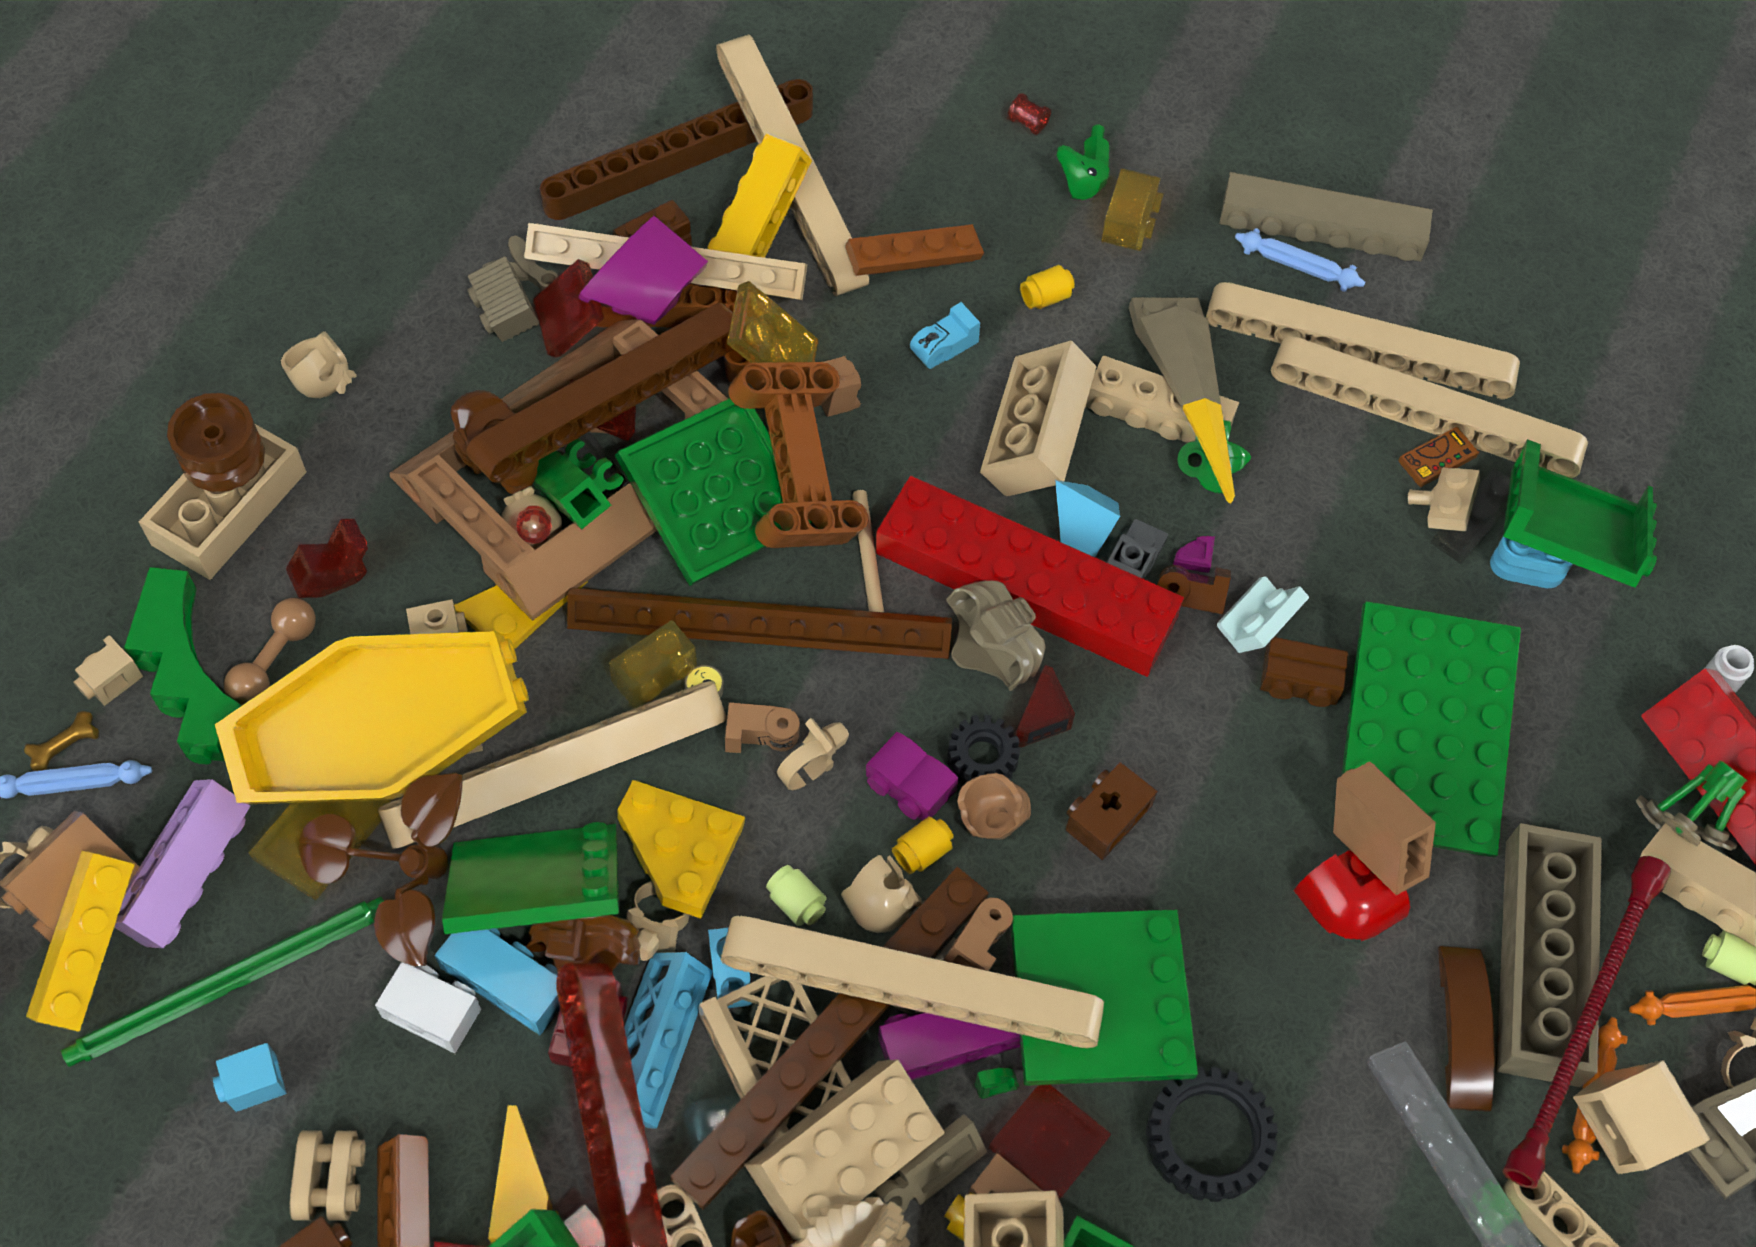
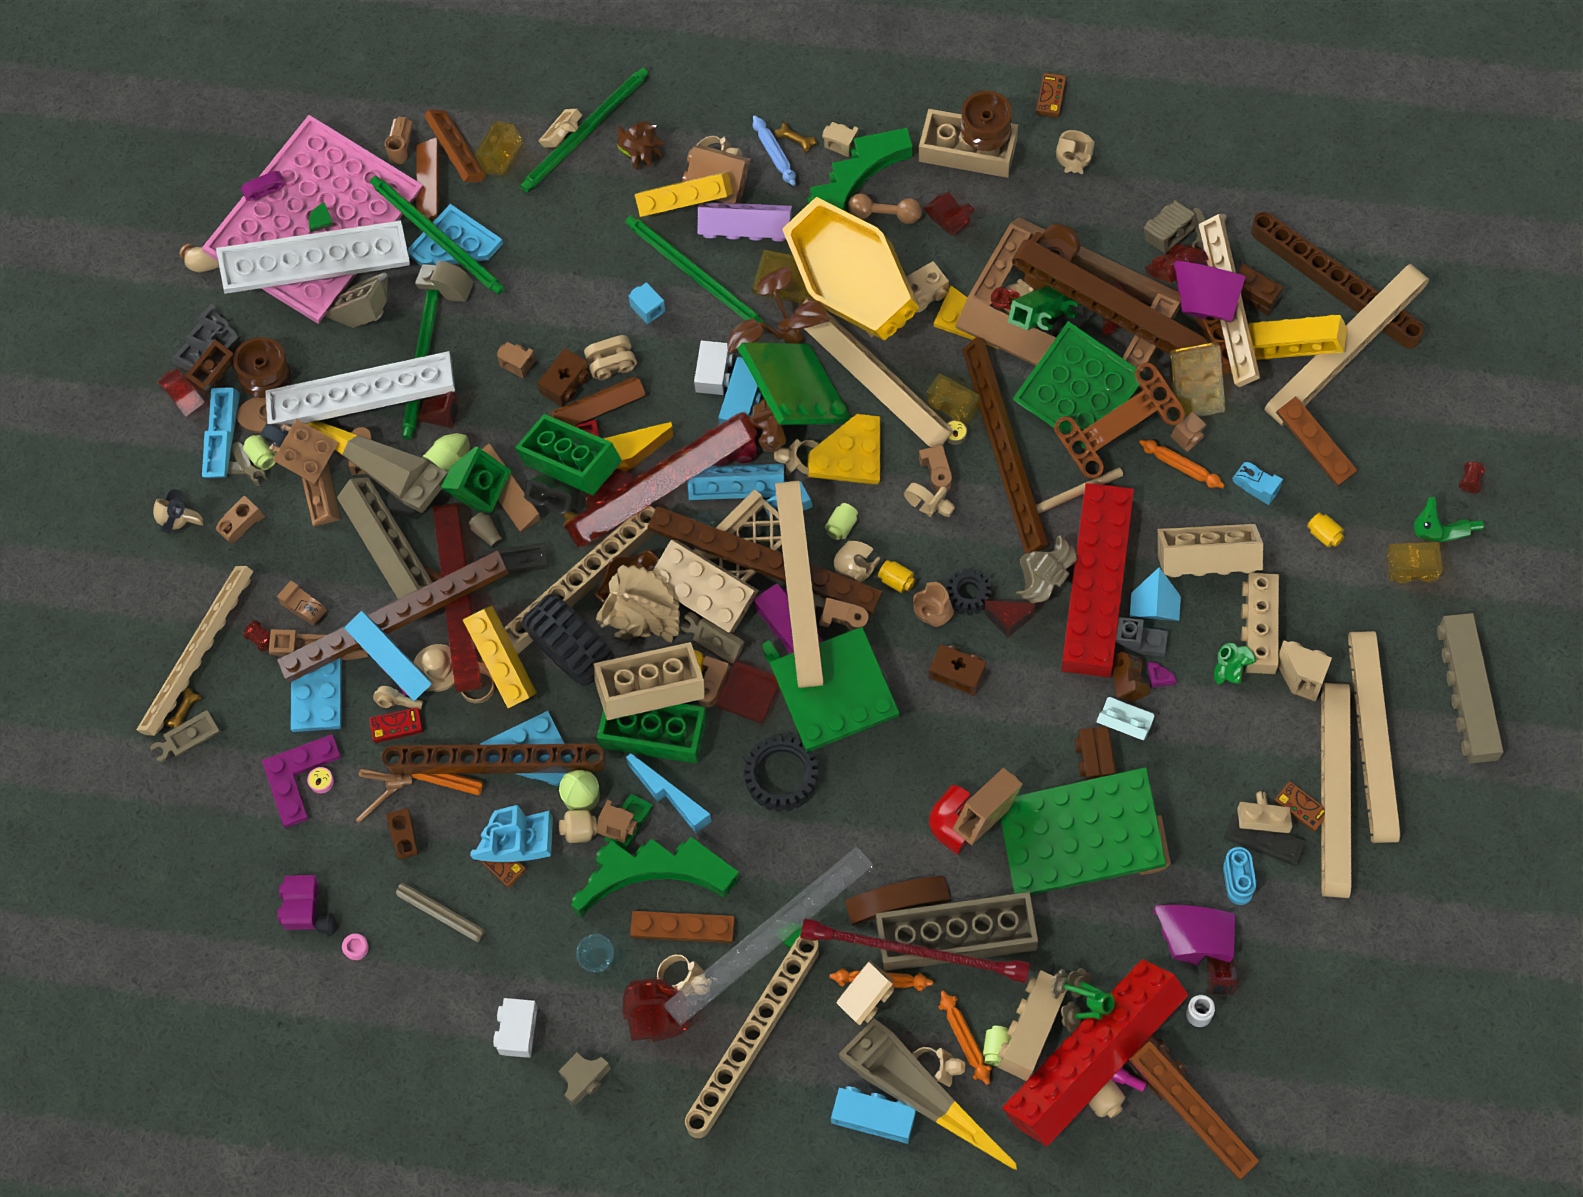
camera: 80 degrees right, 5 degrees up
(198, 370) = (1051, 95): none -> dark orange tile
(878, 416) = (1181, 463): none -> orange wheel
(911, 777) = (936, 557): magenta brick -> none
(1182, 349) = (1312, 619): dark tan plate -> none
(1259, 372) = (1303, 669): none -> tan slope
(1300, 259) = (1428, 682): light blue wheel -> none
(1580, 521) = (1272, 888): green panel -> none
(1608, 636) = (1197, 932): none -> magenta slope
(1673, 629) = (1221, 976): none -> clear red slope

